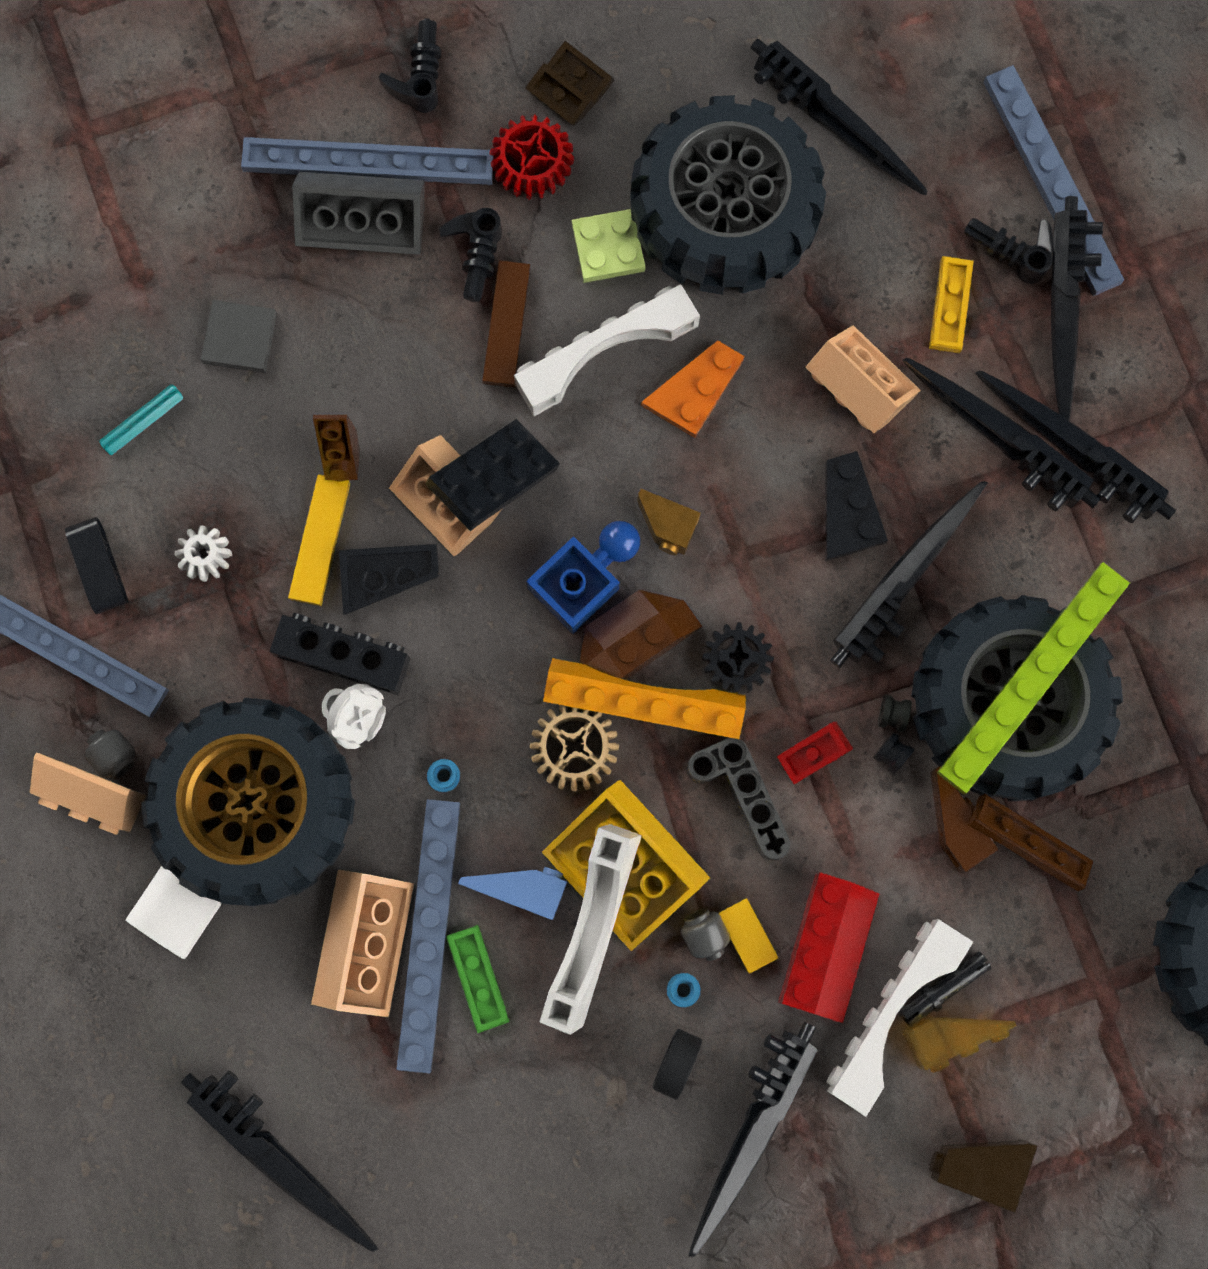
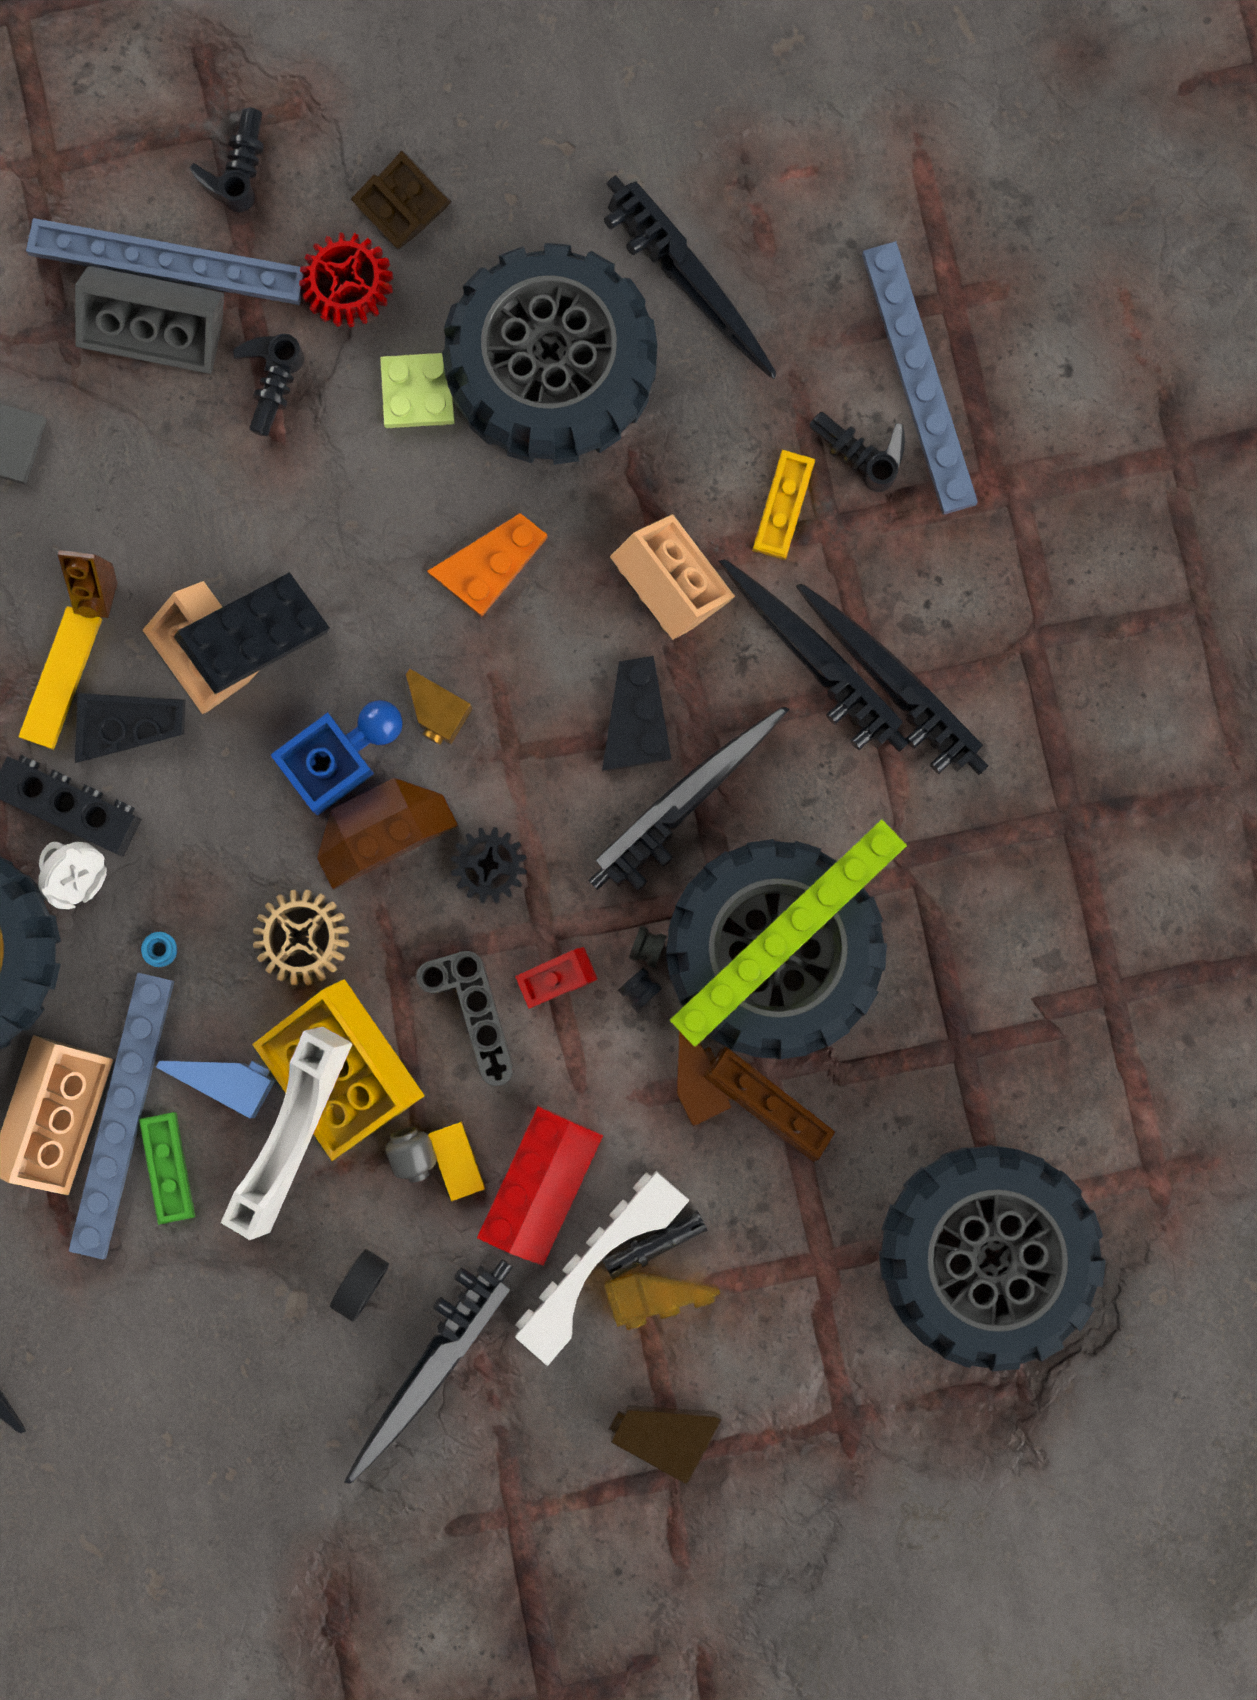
camera: 10 degrees right, 5 degrees up
(506, 324) = (294, 464): reddish brown tile -> none
(661, 318) = (329, 534): white arch -> none
(694, 992) = (369, 1211): dark azure plate -> none
(695, 710) = (433, 916): light orange arch -> none
(1067, 270) = (909, 513): black piece -> none

